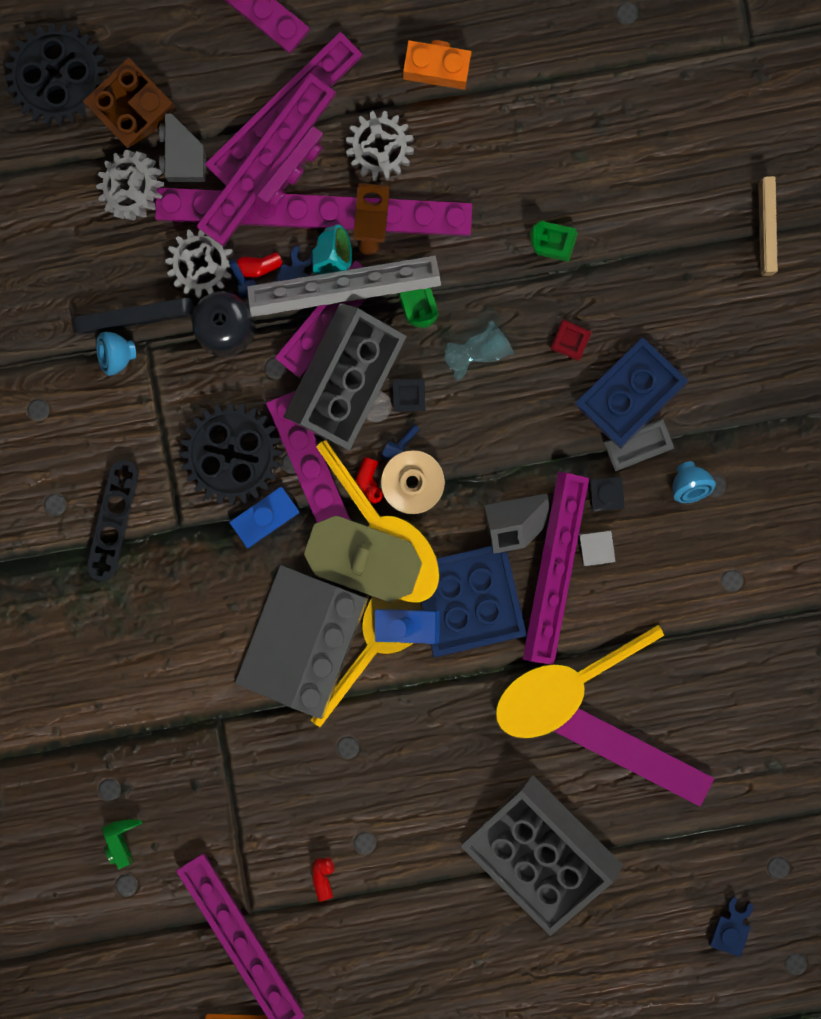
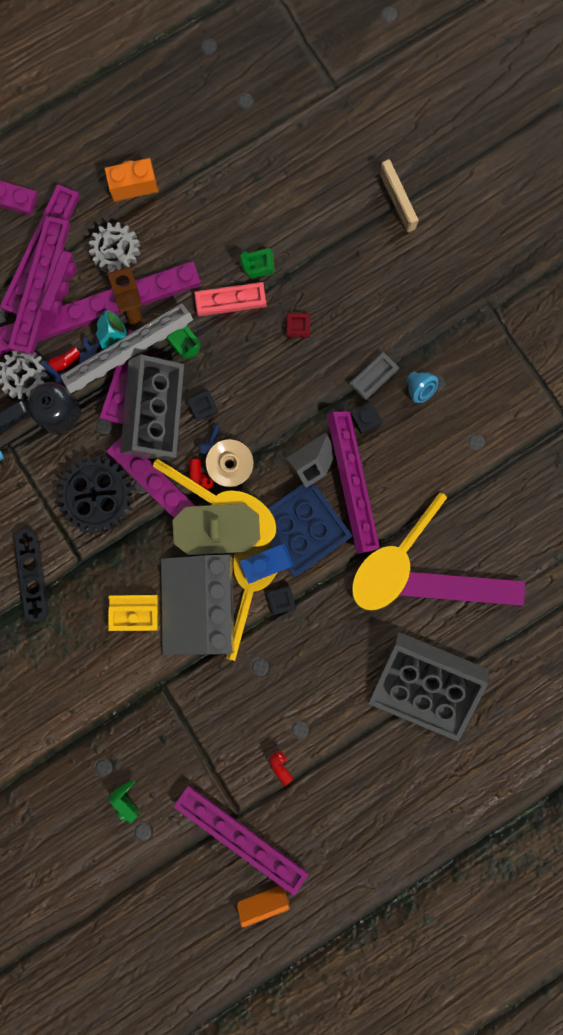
camera: 20 degrees left, 5 degrees down
(220, 618) = (133, 613): none -> yellow plate
(264, 517) = (137, 530): blue tile -> none
(380, 409) = (186, 423): clear tile -> none
(407, 677) = (281, 600): none -> black tile
(484, 347) = (240, 352): clear light blue animal -> none
(499, 271) = (230, 299): none -> coral tile
(597, 548) = (375, 457): light grey tile -> none
(631, 393) = (354, 342): dark blue plate -> none

